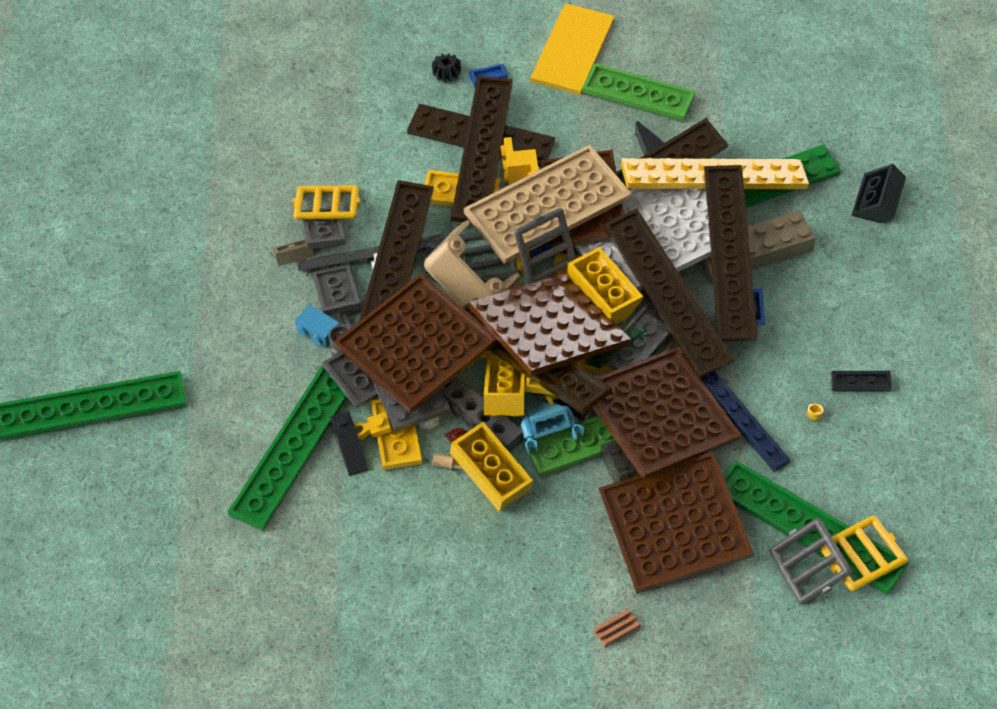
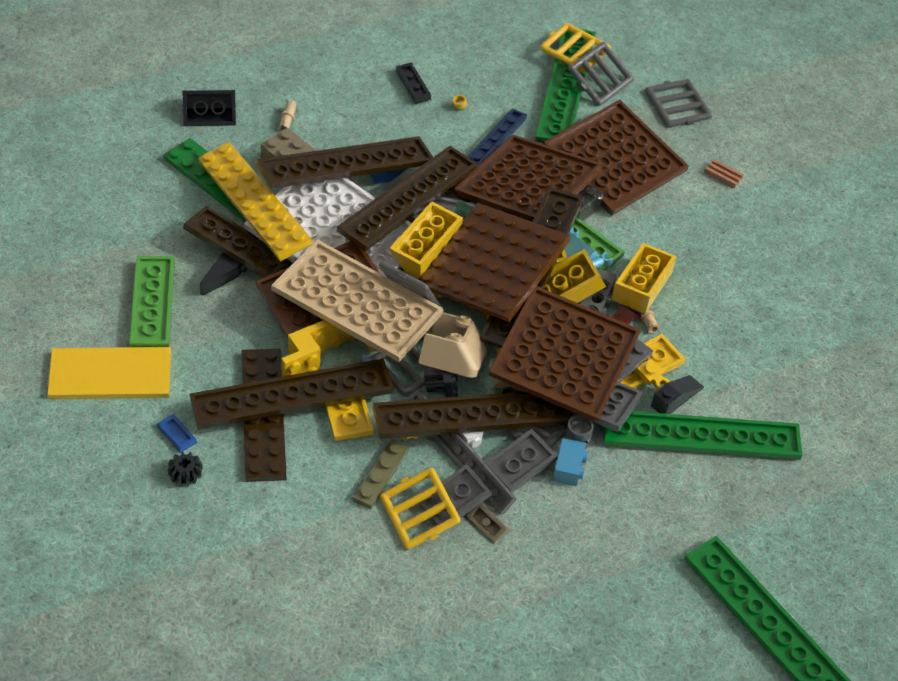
camera: 120 degrees left, 5 degrees down
(373, 189) = (381, 474): none -> olive plate
(735, 611) = (656, 101): none -> dark grey bar
(845, 255) = (287, 115): none -> tan pin

